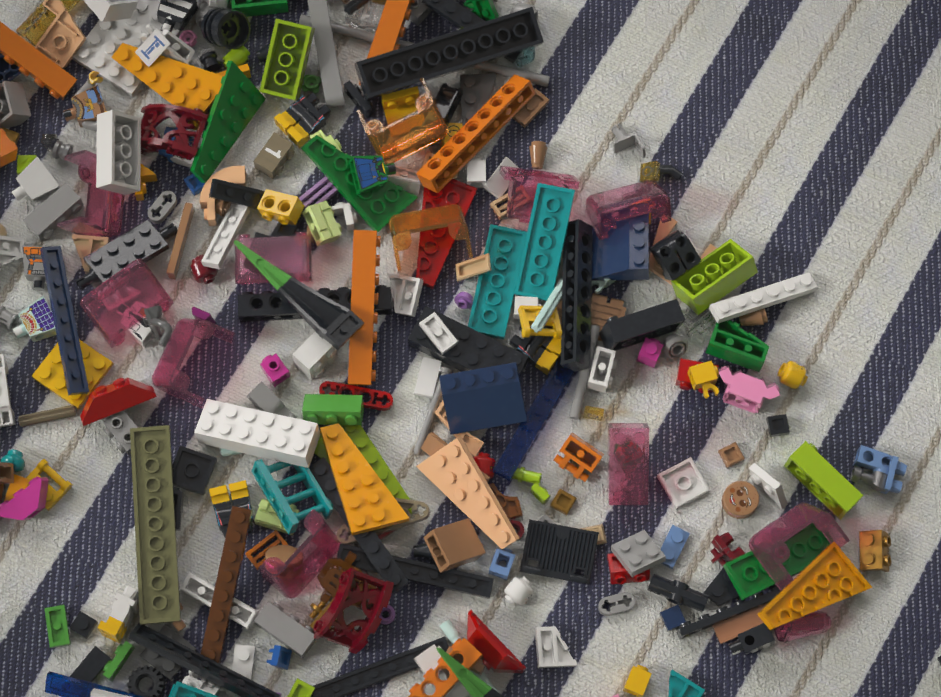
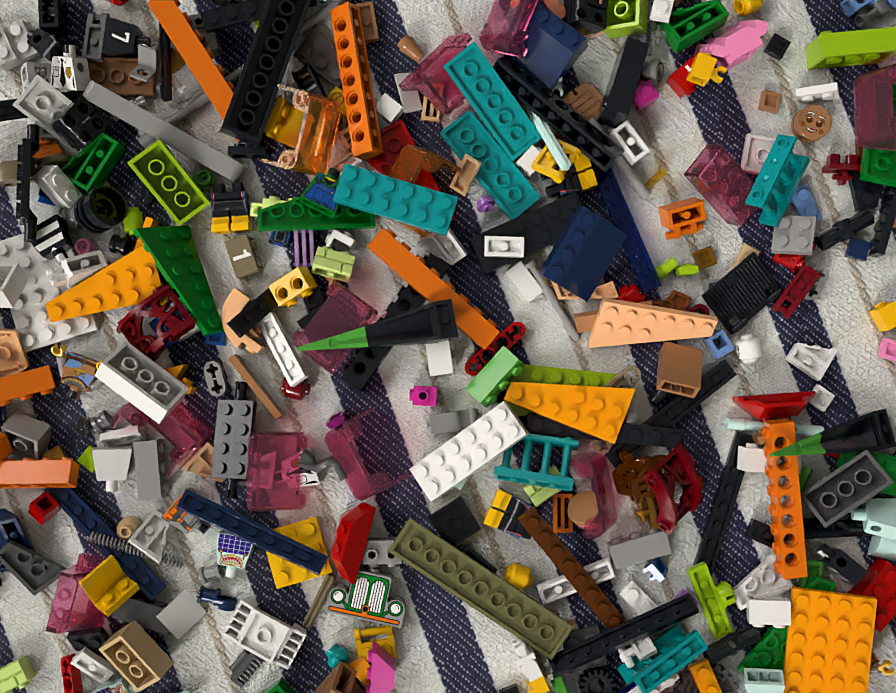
camera: 50 degrees left, 15 degrees up
(63, 173) = (123, 436): none -> white plate
(79, 450) = (368, 598): none -> brick
(152, 47) = (70, 283): white sticker -> none
(187, 551) = (518, 576): none -> yellow head
(311, 172) = (281, 238): none -> tile
(406, 225) = (395, 199): none -> teal plate
(526, 681) = (822, 398): none -> white plate
(595, 591) = (796, 290): none -> dark red plate
(670, 518) = (777, 180): none -> teal fence

